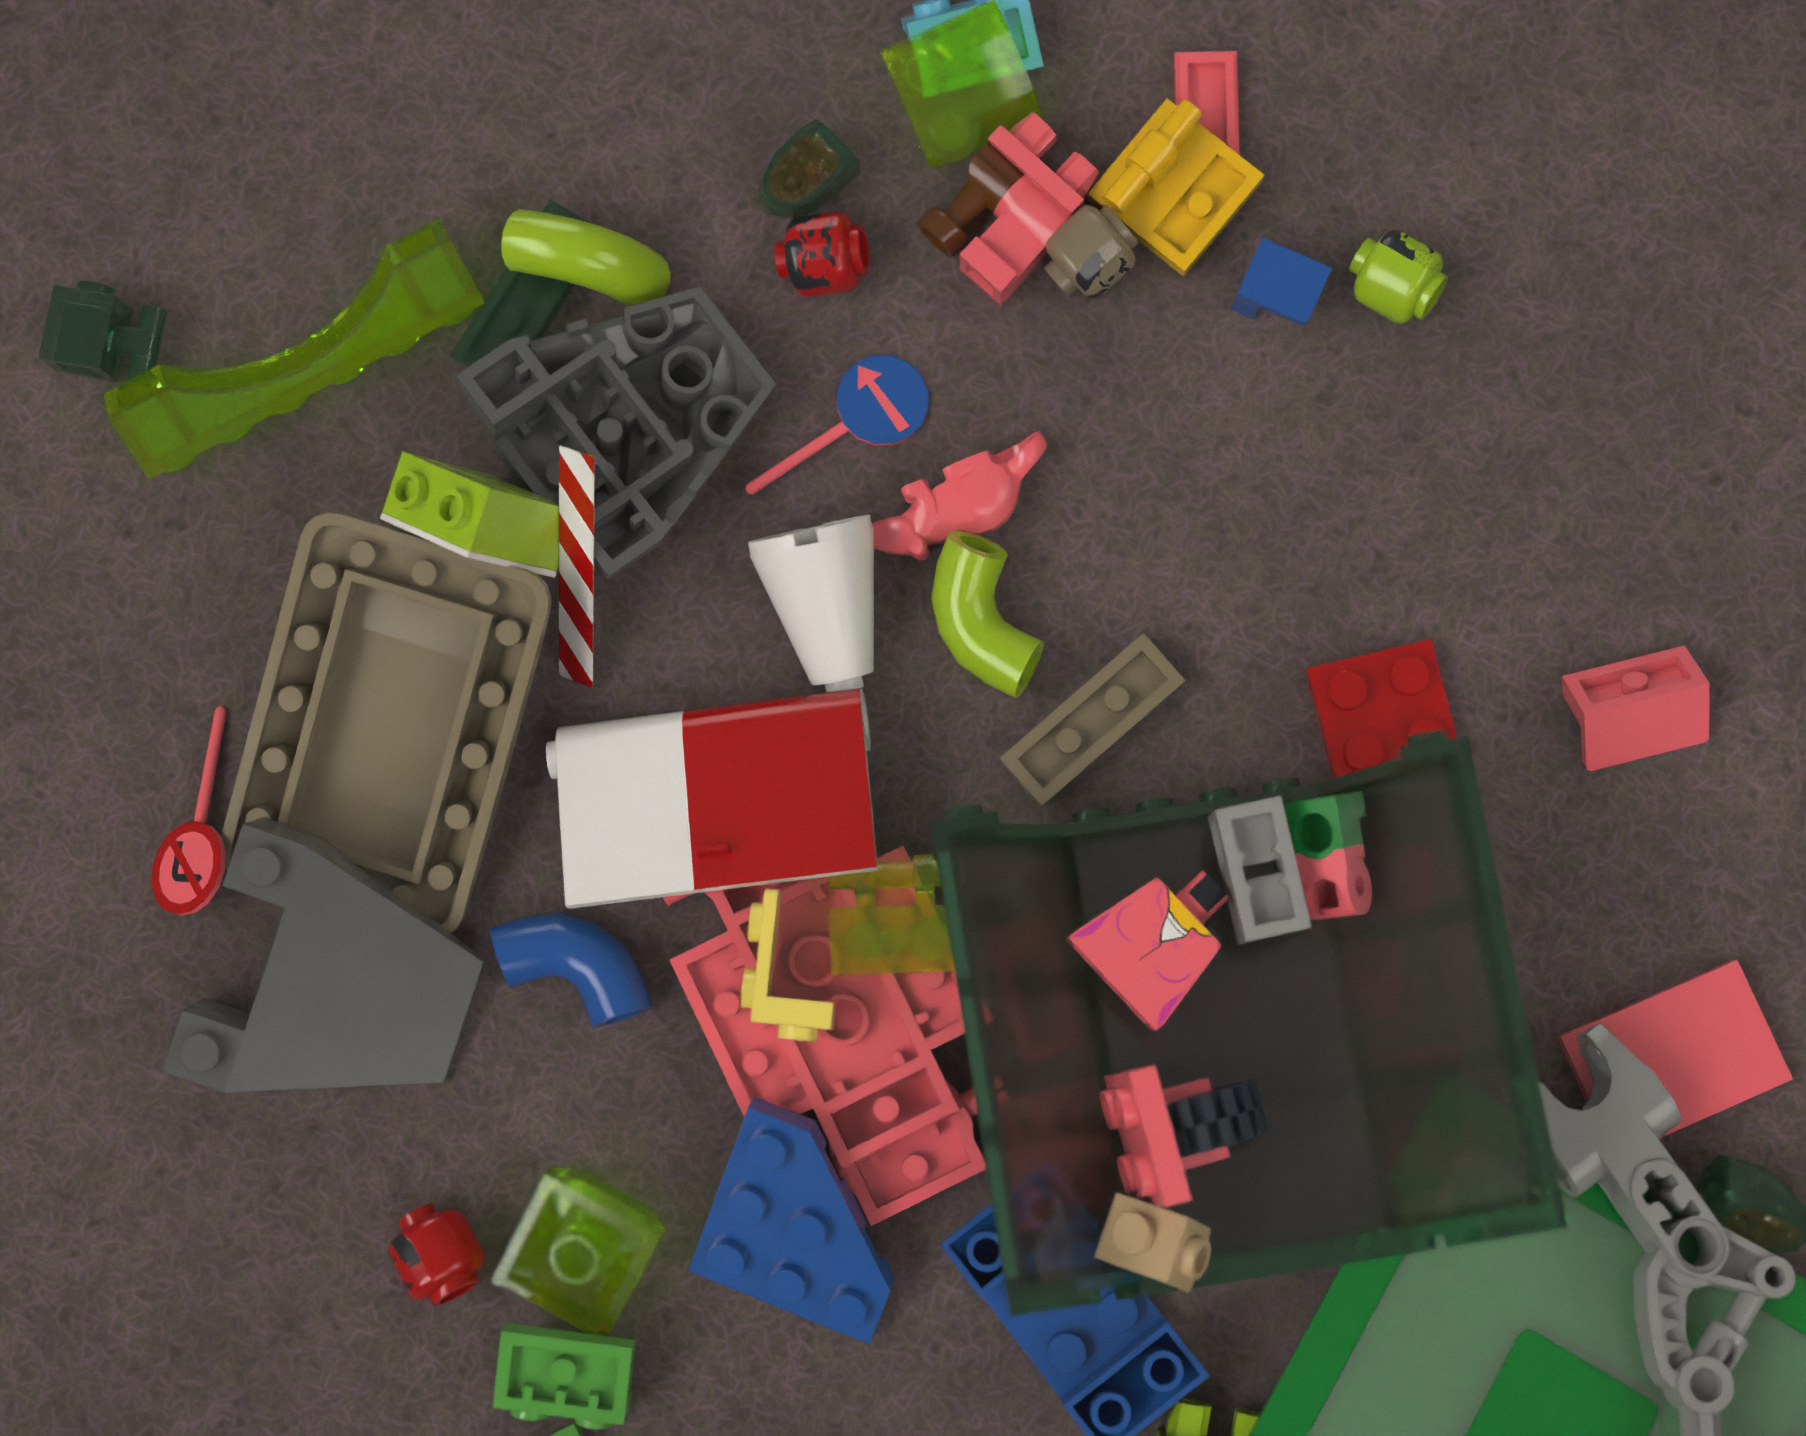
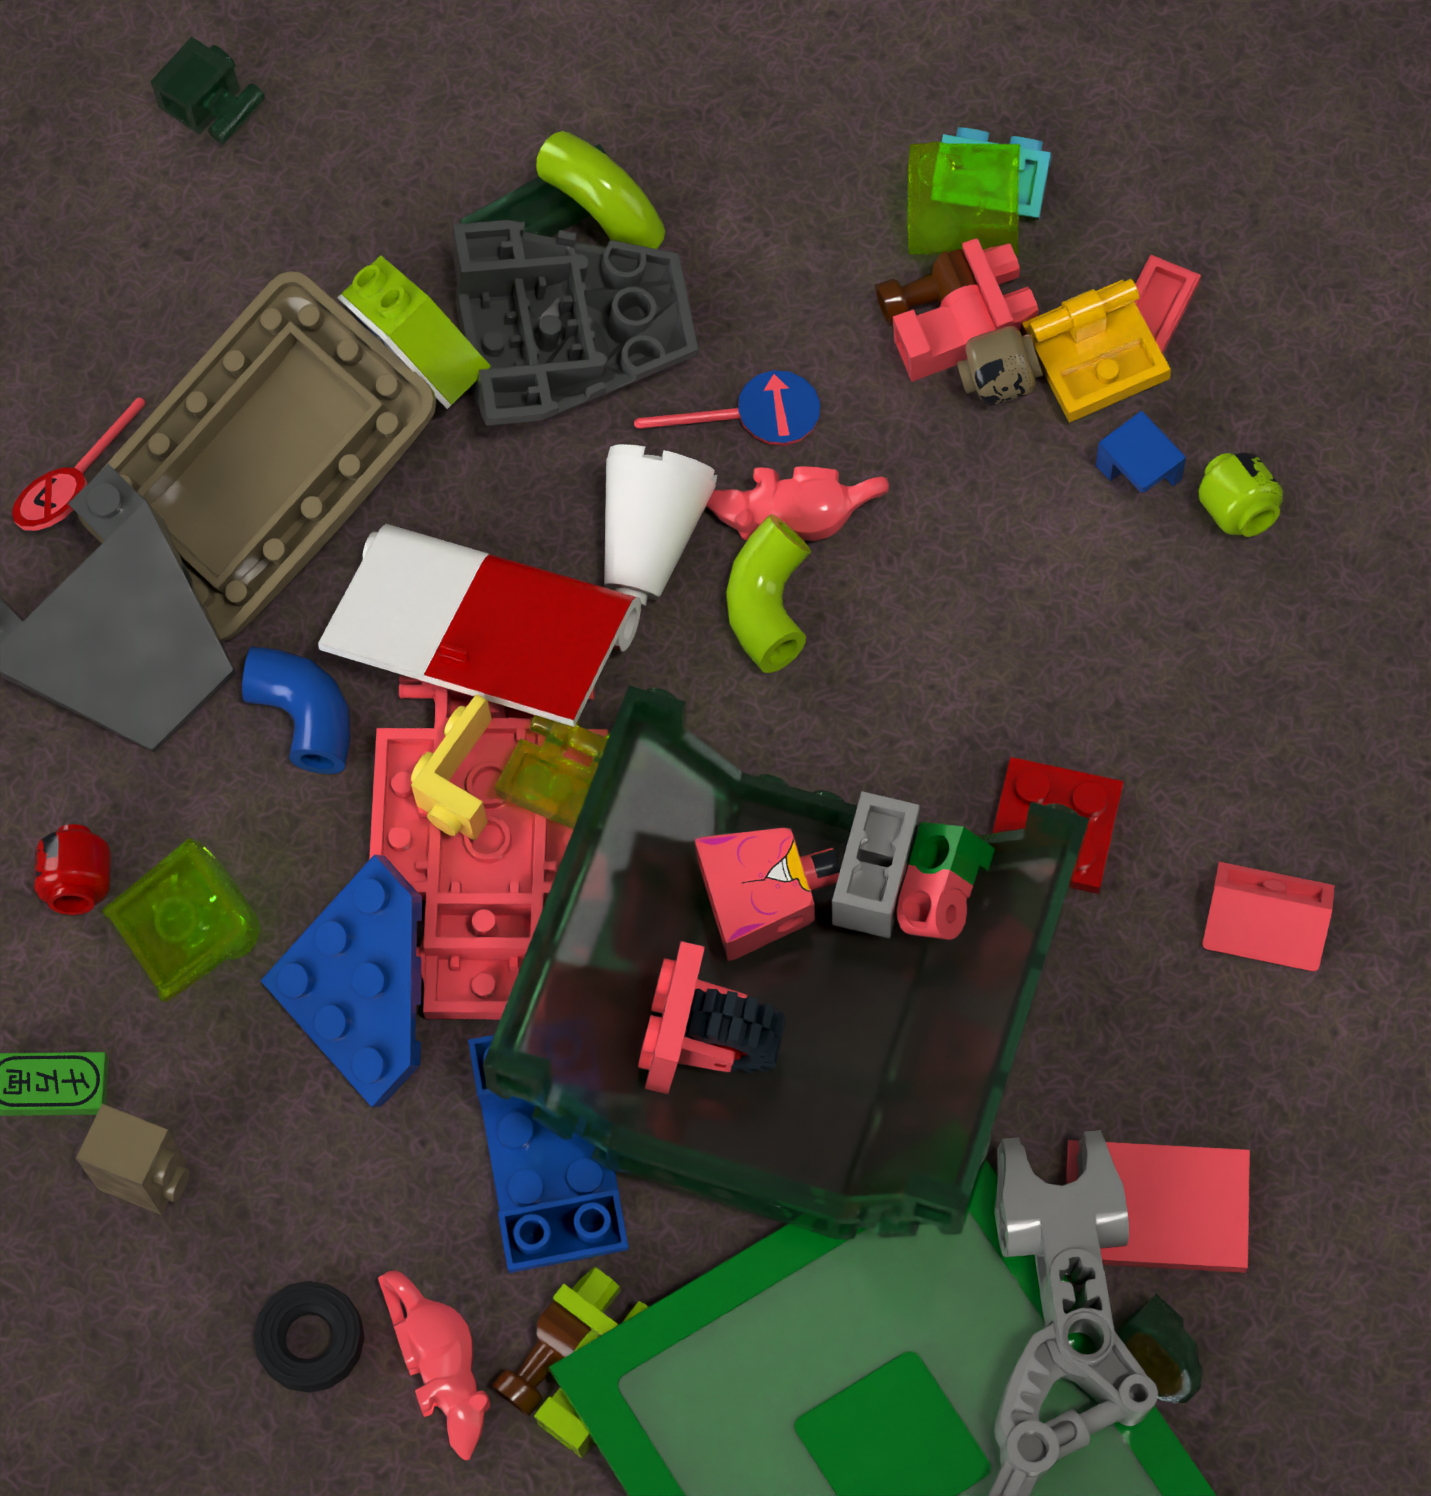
camera: 25 degrees right, 15 degrees down
(182, 411) = (233, 168): clear neon green arch -> none
(564, 1375) = (119, 1002): bright green bracket -> none
(576, 565) = (467, 405): sticker -> none
(807, 172) = (808, 210): rock -> none
(823, 254) = (789, 276): red head -> none
(1092, 720) = (813, 716): dark tan plate -> none
(1155, 1243) = (637, 1103): tan bracket -> none

